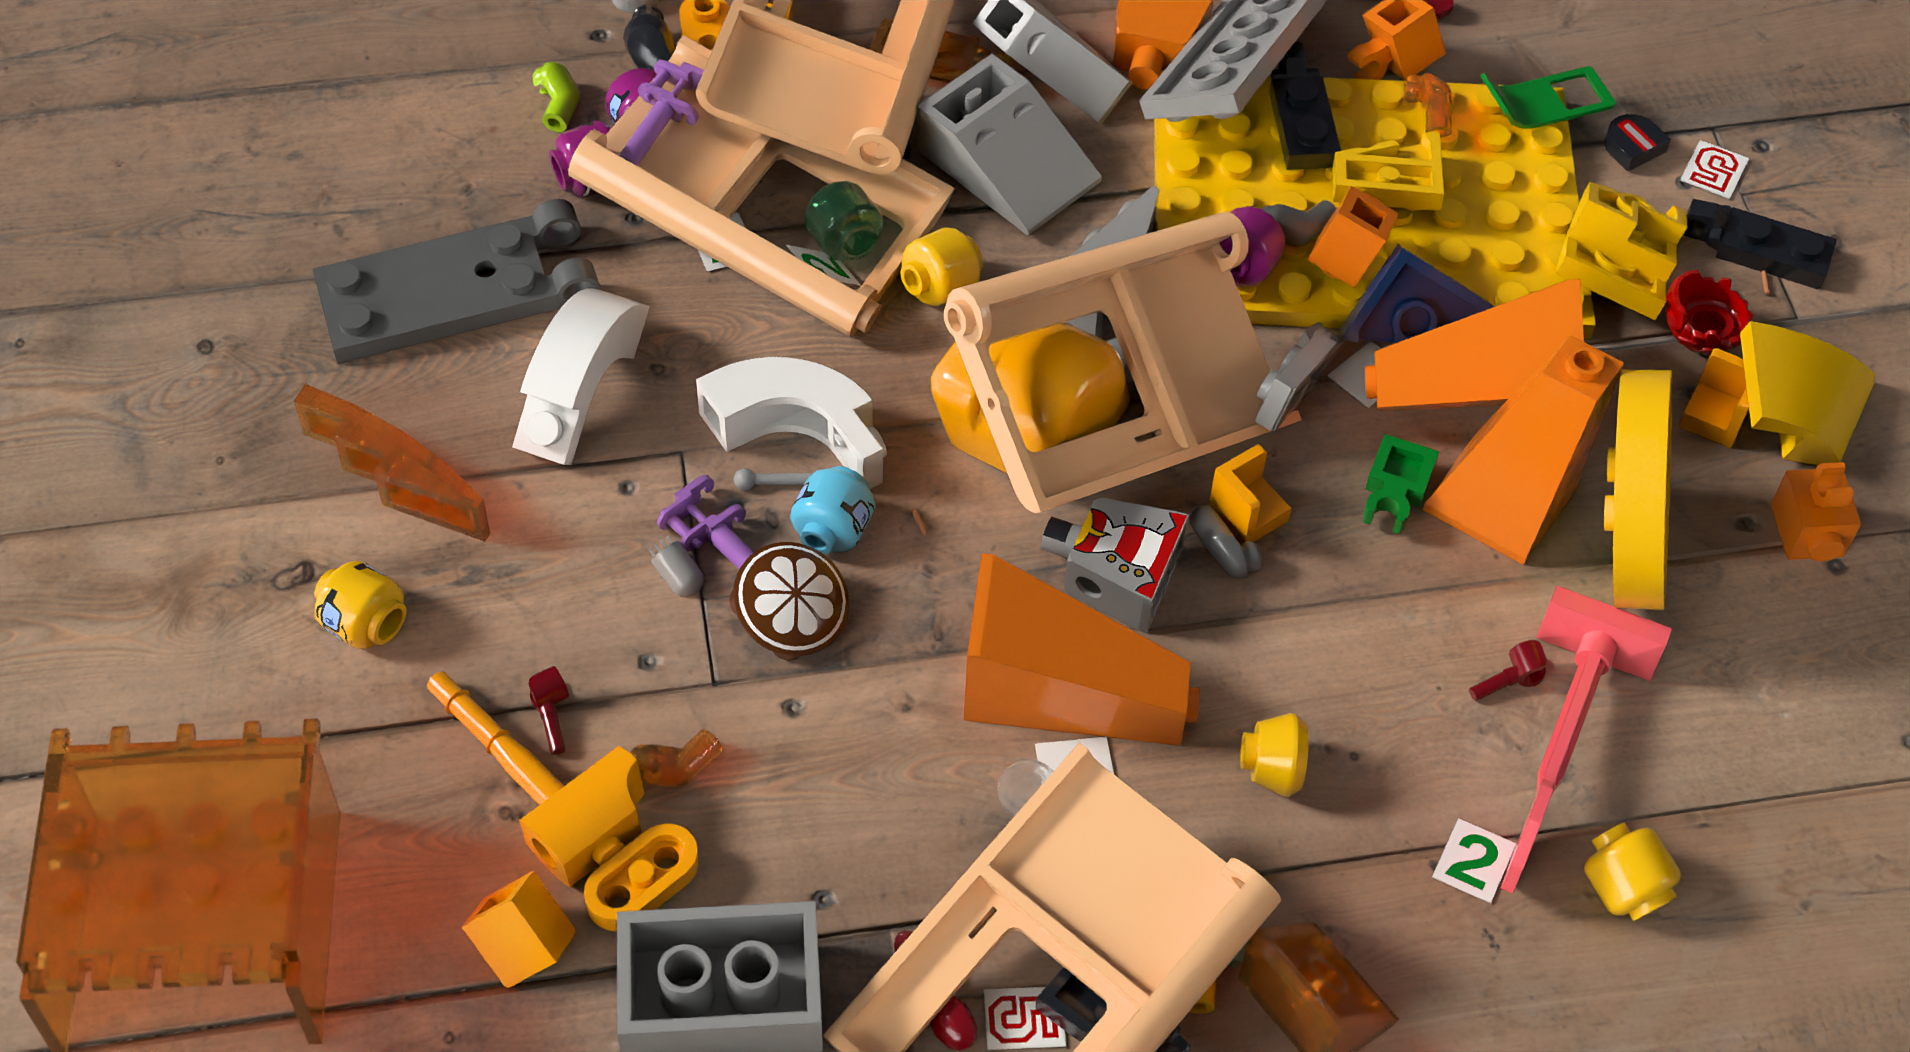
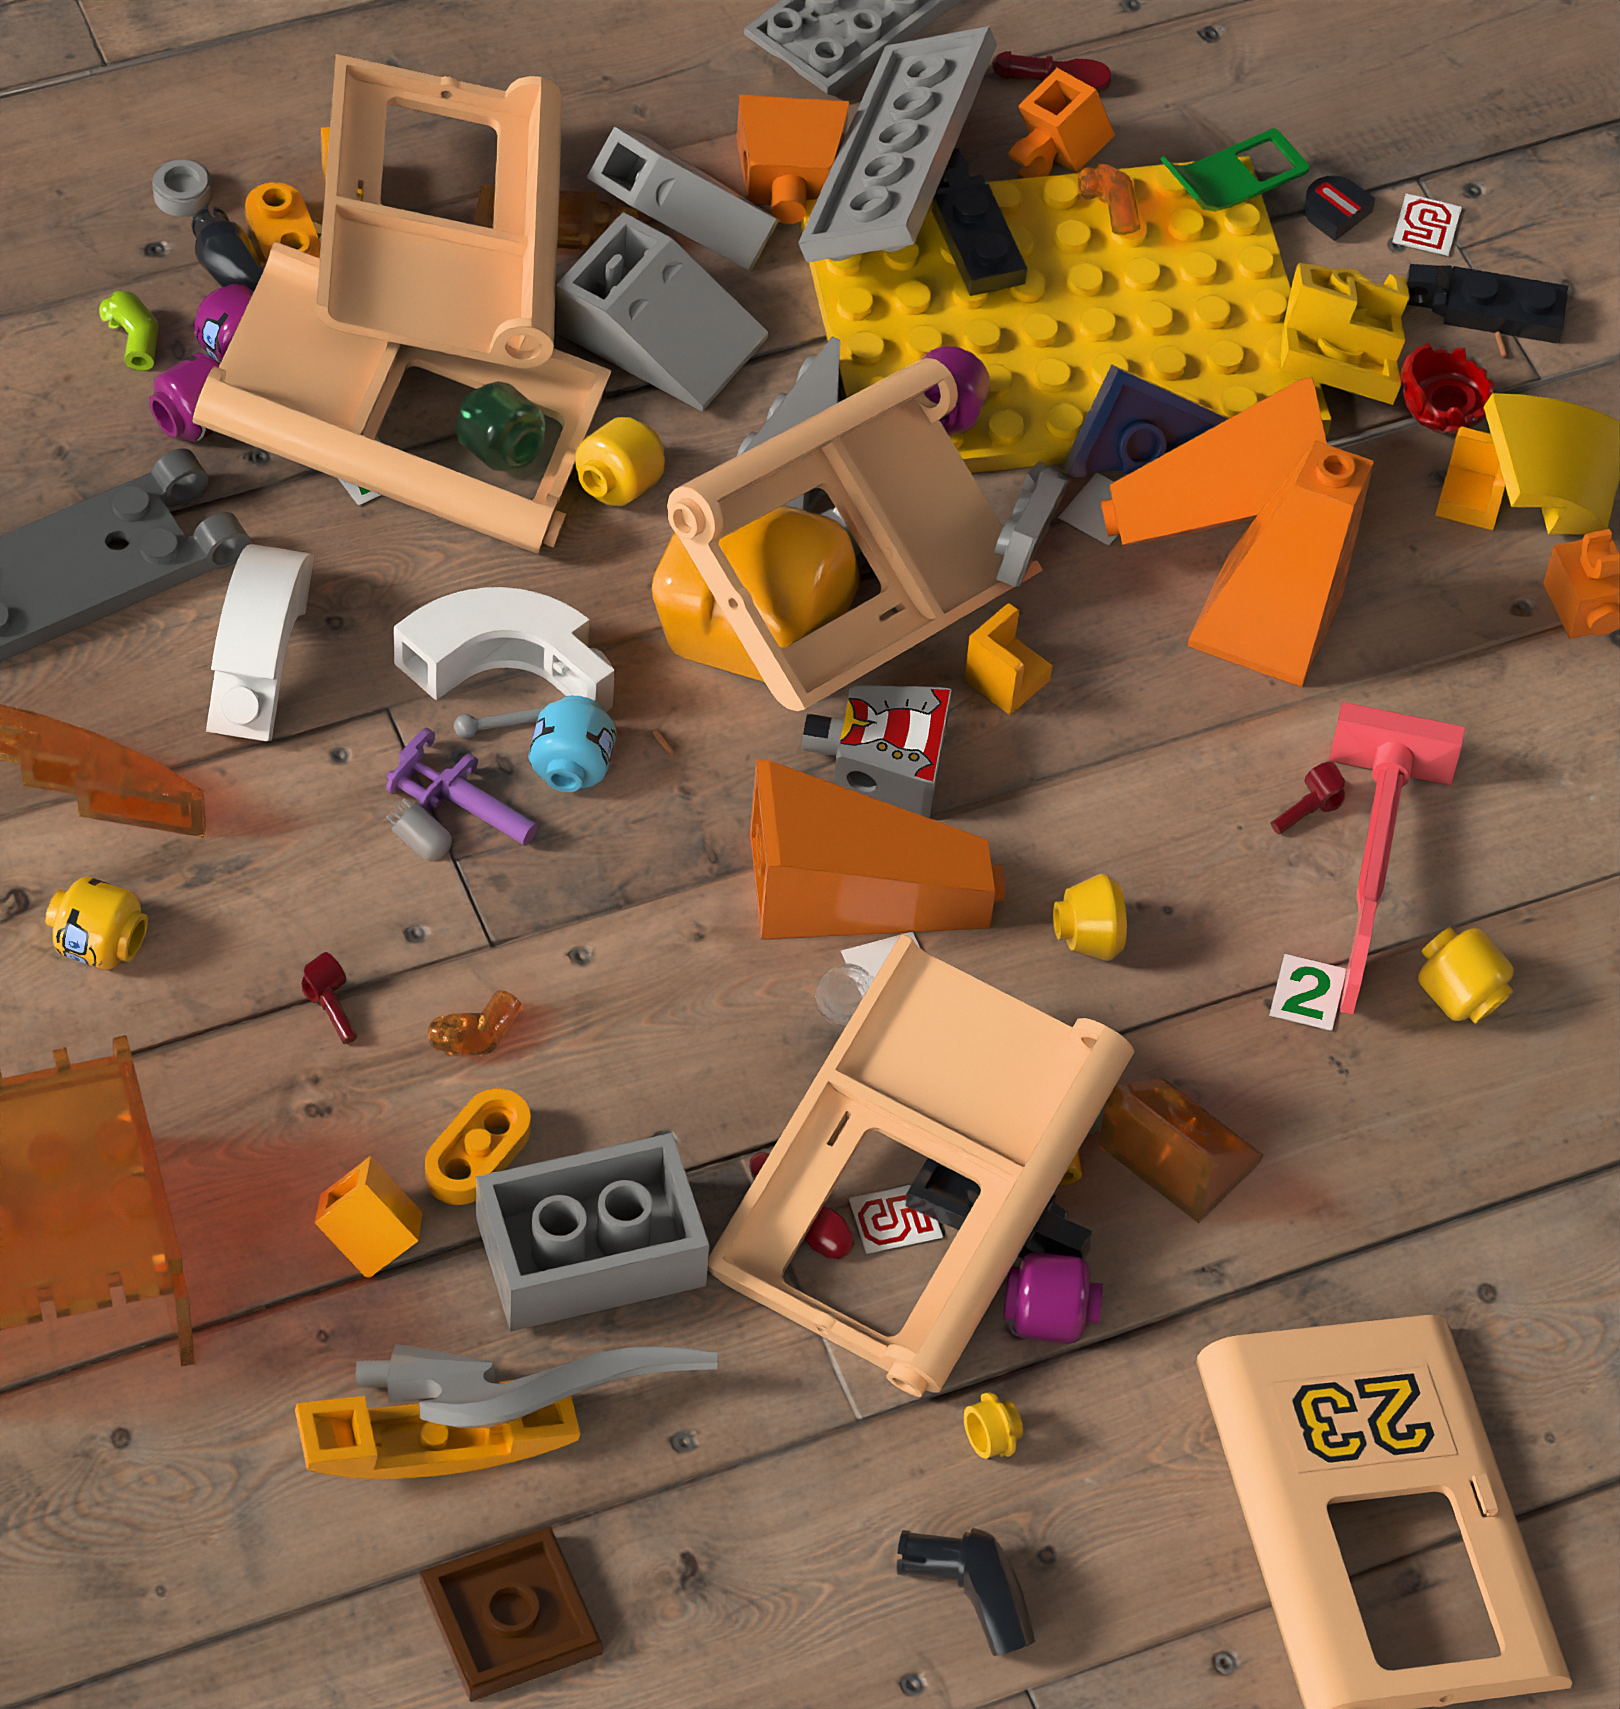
camera: 15 degrees left, 0 degrees up
(574, 823) = (391, 1108): light orange piece -> none
(664, 108) = (277, 324): medium lavender piece -> none
(790, 599) = (554, 843): dish -> none
(825, 264) = (487, 475): white sticker -> none
(1221, 543) = (1003, 726): dark grey arm -> none
(1301, 226) = (1003, 357): dark grey arm -> none
(1353, 236) = (1061, 362): orange brick -> none
(1397, 176) = (1086, 286): yellow wing -> none
(1398, 479) = (1157, 617): green plate -> none
(1641, 489) = (1410, 575): yellow piece -> none

